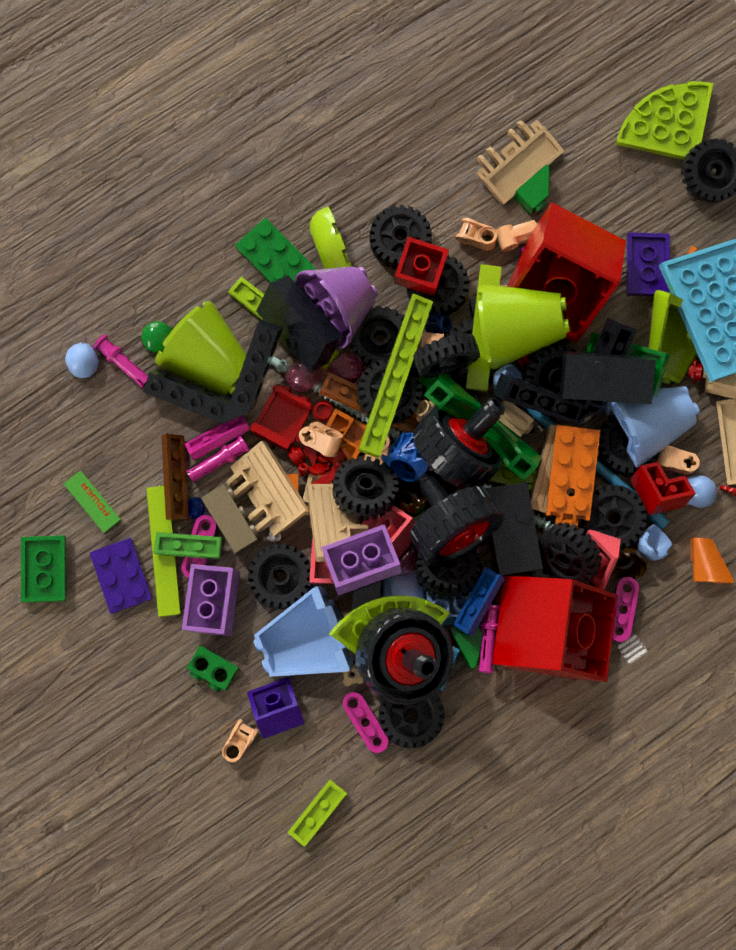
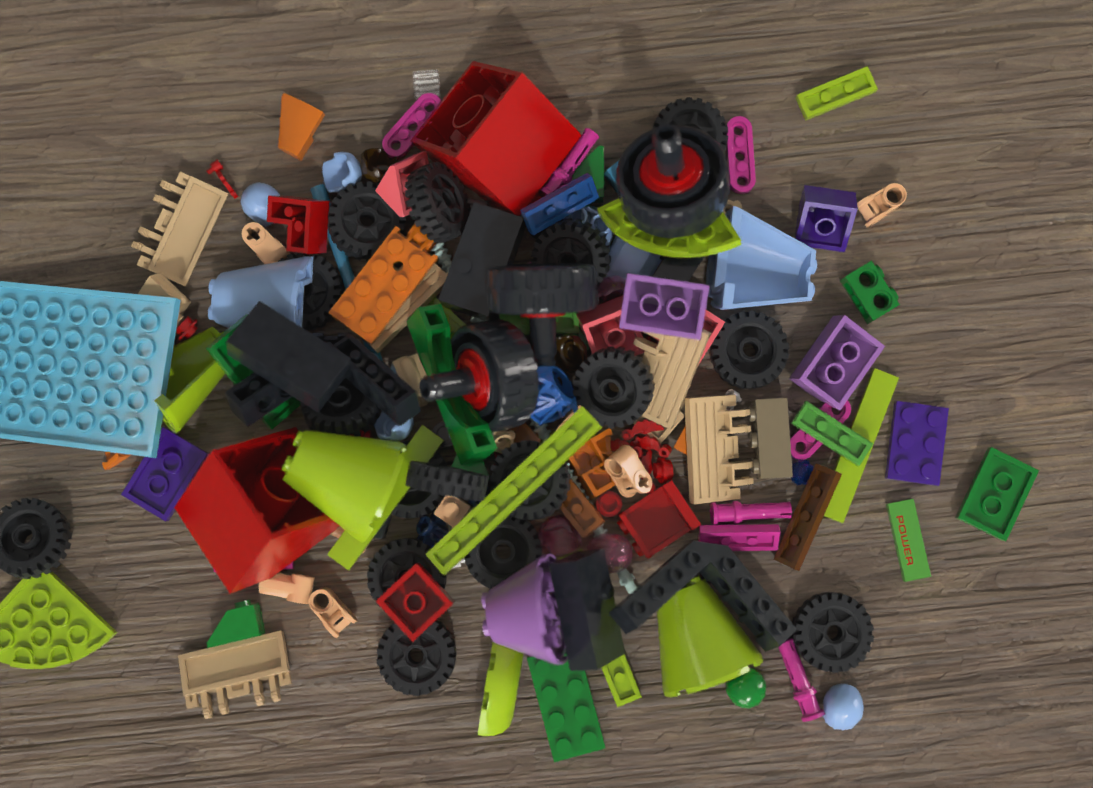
camera: 145 degrees left, 5 degrees up
(110, 391) = (852, 638): none -> black wheel

